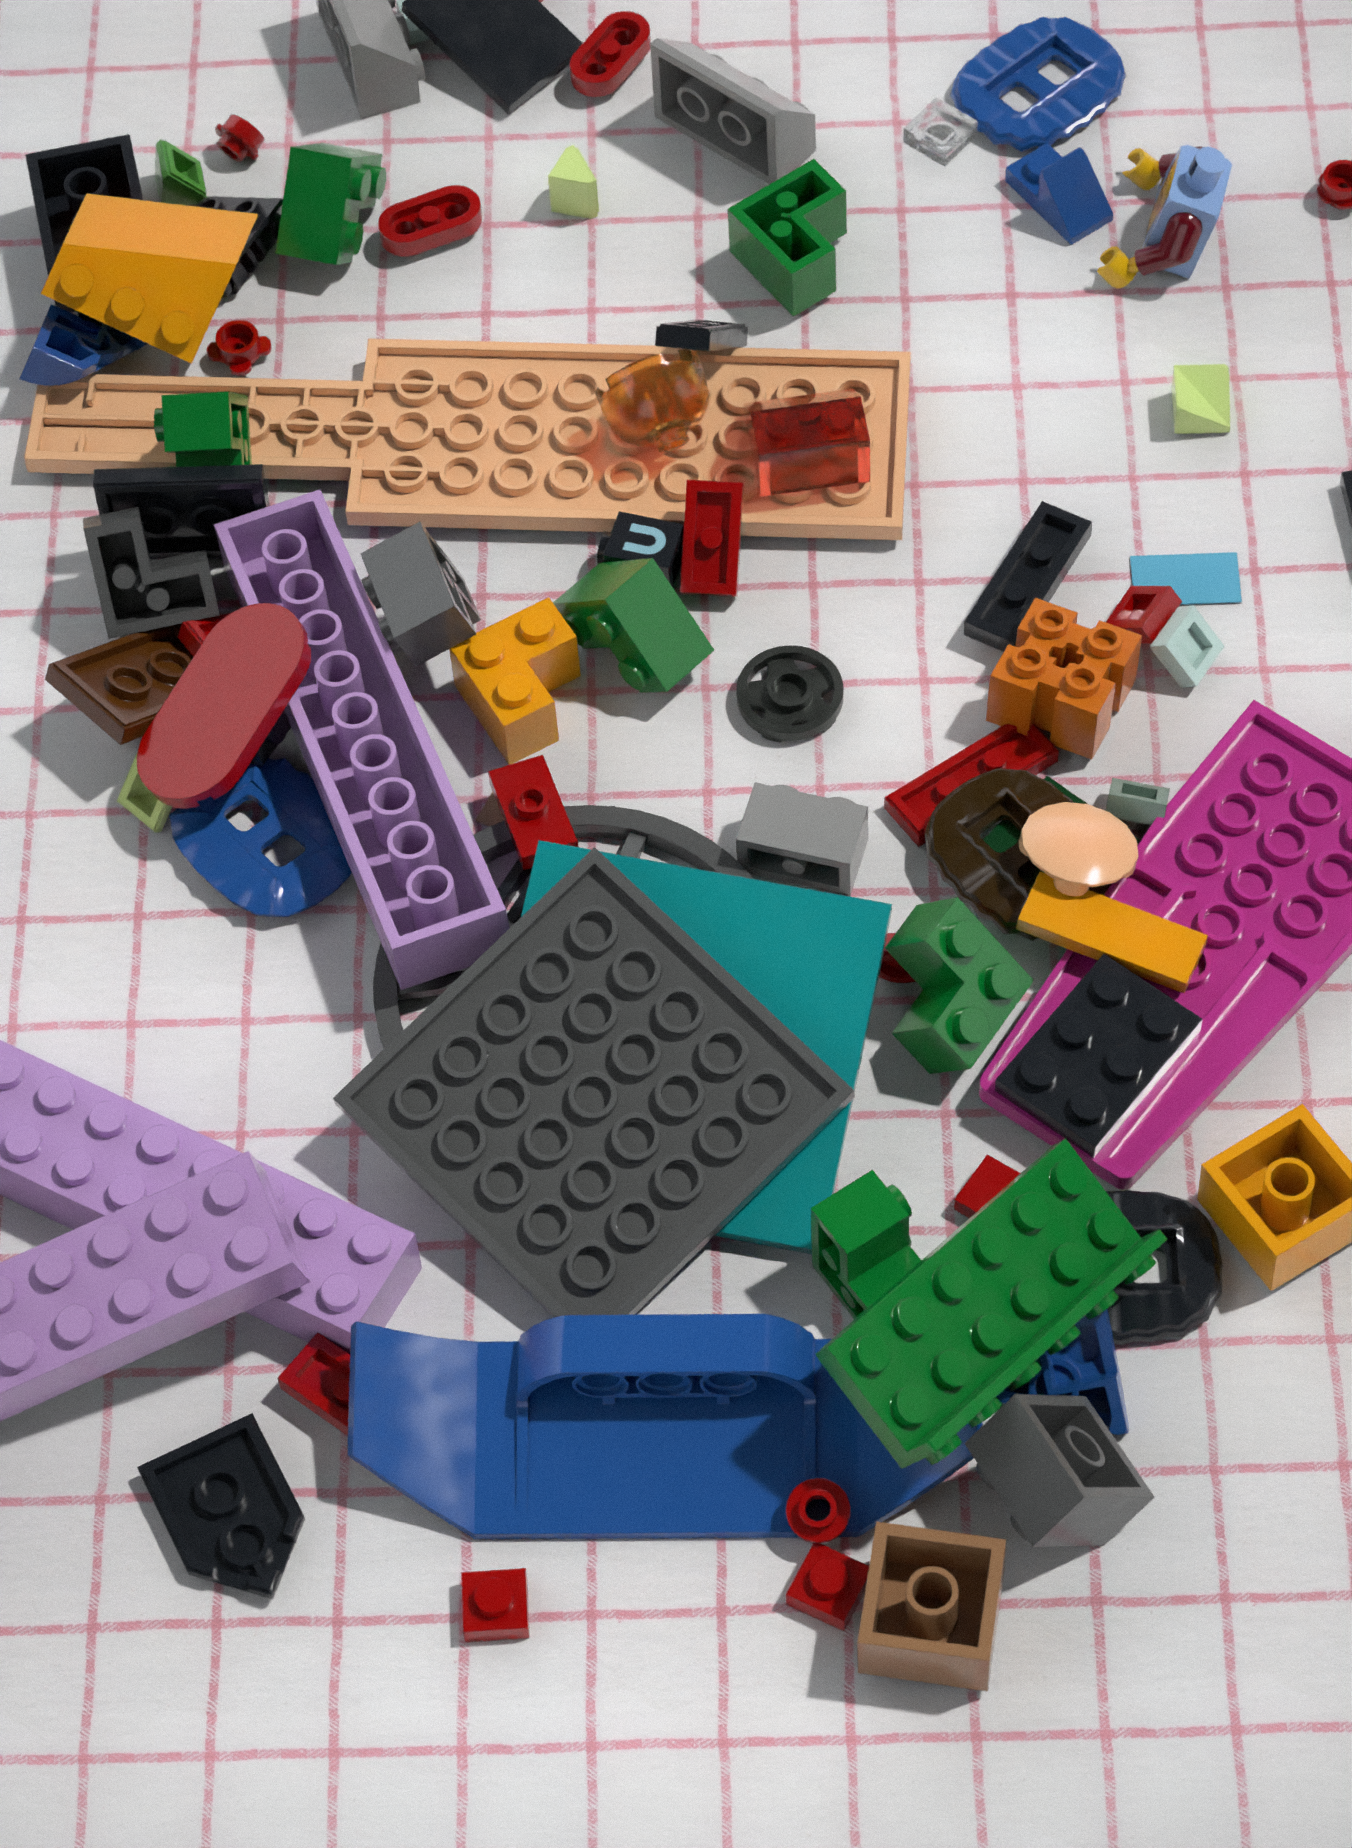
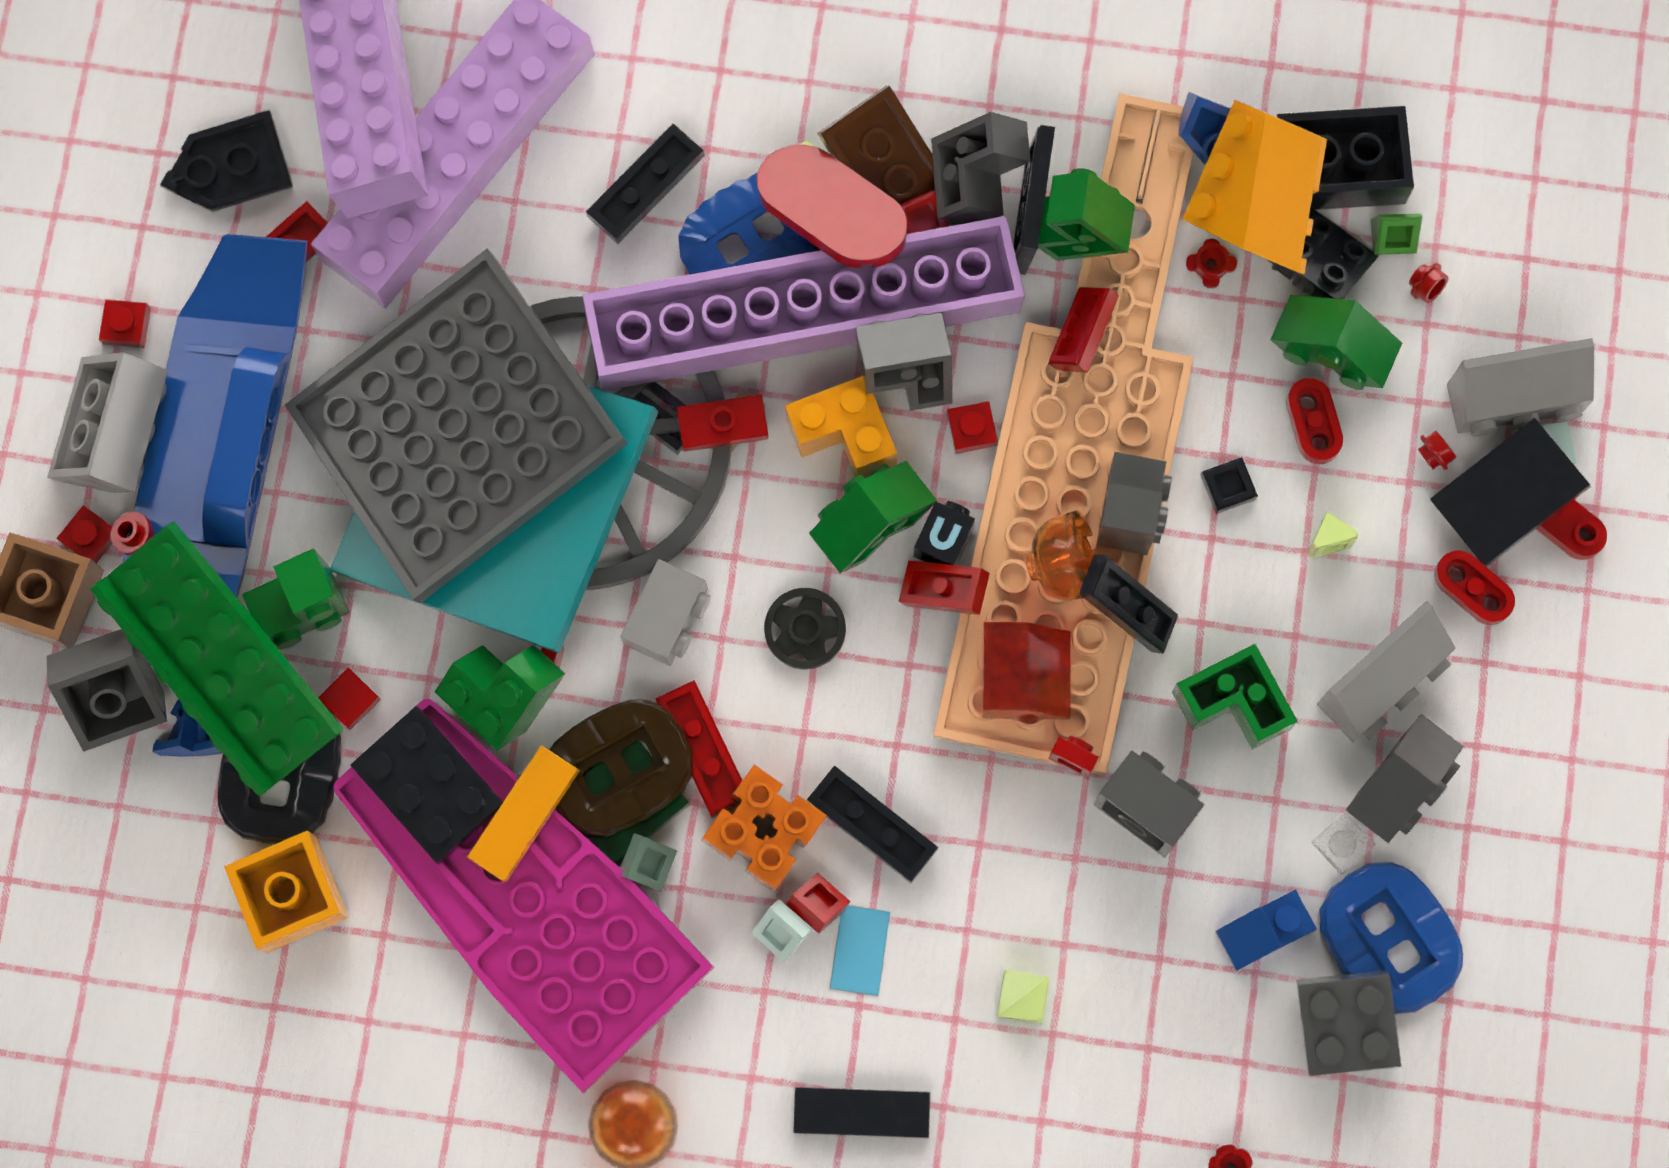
camera: 100 degrees right, 20 degrees up
(202, 965) = (645, 183): none -> black plate
(353, 435) = (1083, 329): none -> red plate
(449, 106) = (1436, 451): none -> red plate
(491, 559) = (972, 427): none -> red plate
(523, 297) = (1229, 485): none -> black tile
(575, 350) = (1132, 504): none -> dark grey brick
(655, 1586) = (108, 422): none -> light grey slope
(858, 65) = (1407, 777): none -> dark grey brick
(901, 368) = (1074, 755): none -> red plate
(942, 292) = (1149, 802): none -> dark grey brick
(1079, 846) = (593, 801): light nougat dish -> none
(1151, 87) = (1348, 1023): none -> dark grey brick
(1181, 215) = (1210, 1020): torso -> none

